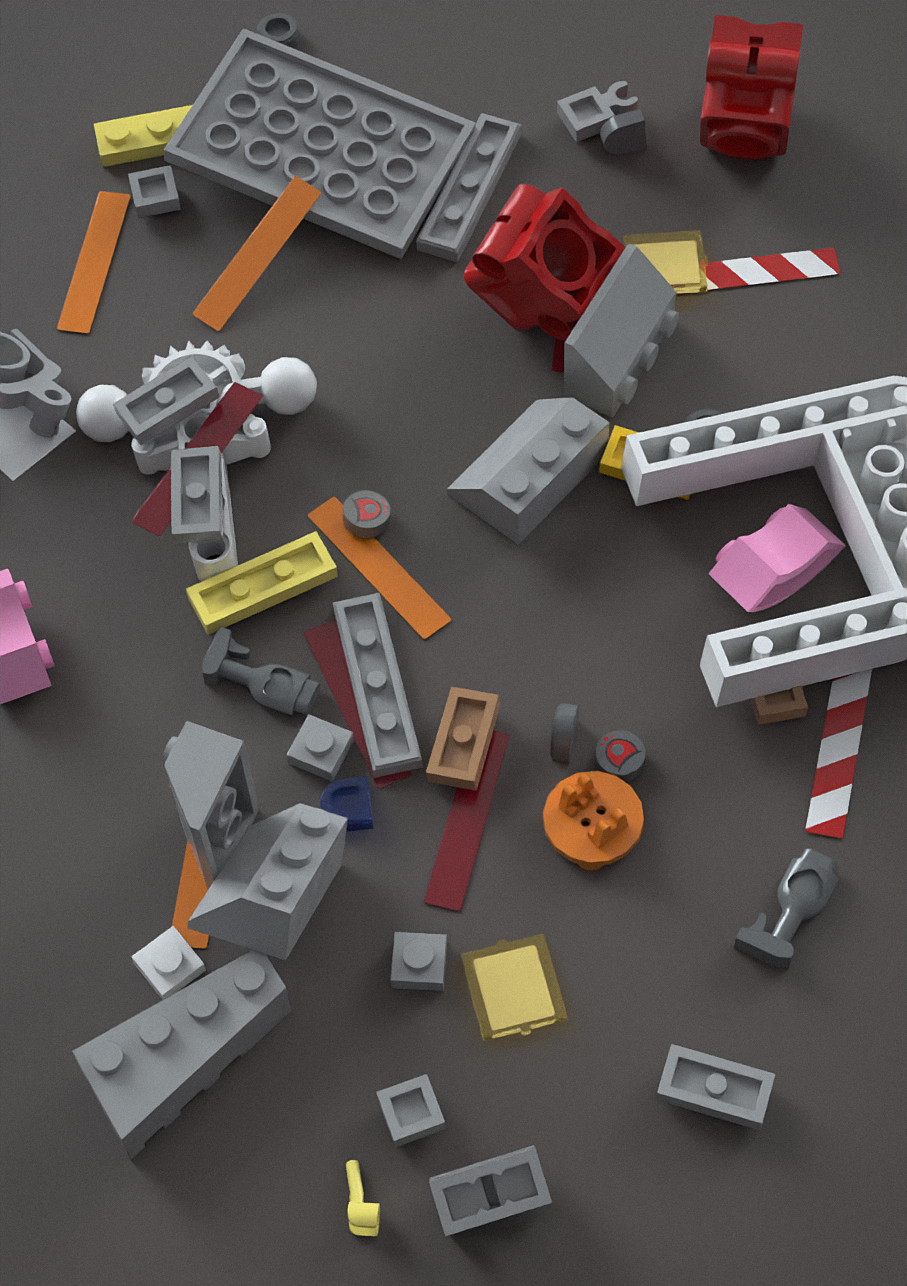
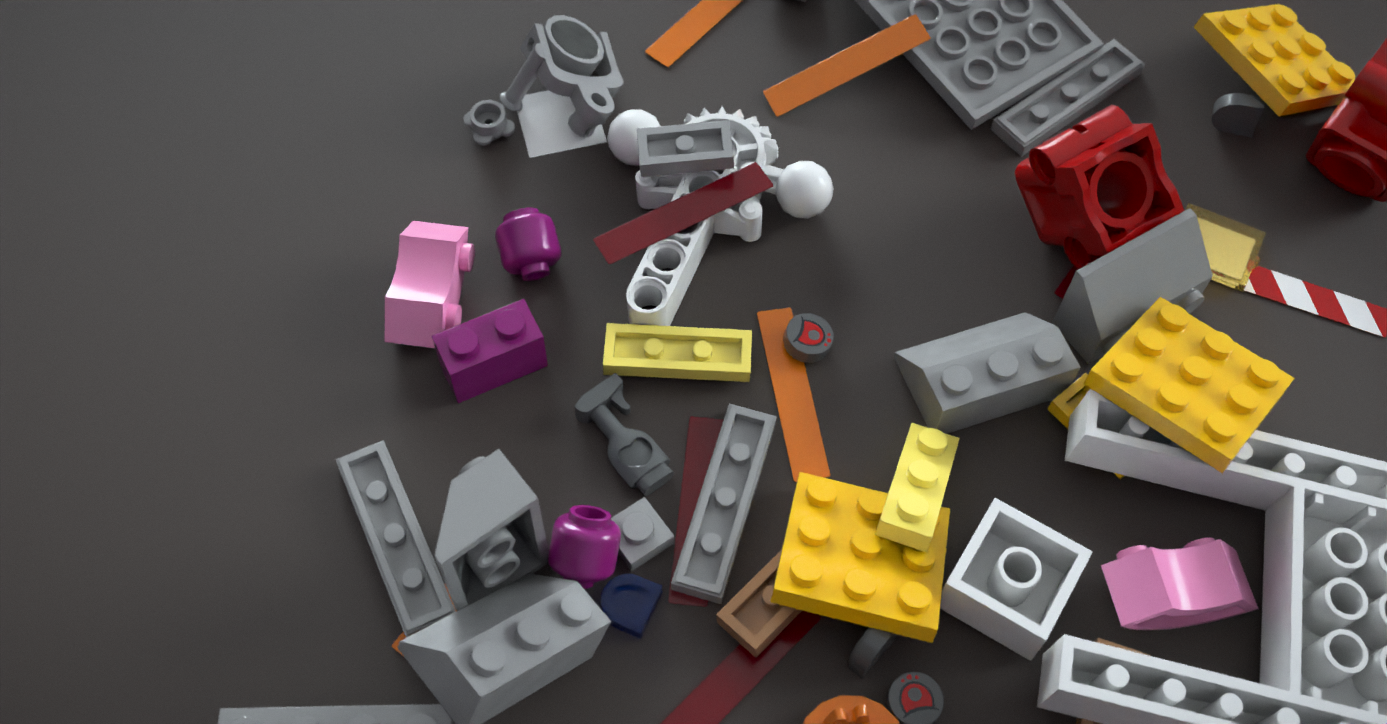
camera: 25 degrees right, 0 degrees up
(69, 556) = (528, 243): none -> magenta head
(98, 663) = (490, 350): none -> magenta brick
(115, 858) = (395, 538): none -> light grey tile
(168, 963) = (375, 666): white plate -> none
(196, 494) = (659, 243): light grey plate -> none
(285, 775) = (584, 545): none -> magenta head
(517, 664) = (847, 572): none -> yellow plate
(530, 586) = (918, 487): none -> light yellow plate
(589, 110) = (1211, 79): light grey plate -> none
(632, 65) = (1277, 57): none -> yellow plate
(646, 620) = (1014, 579): none -> white brick
(701, 390) = (1189, 383): none -> yellow plate

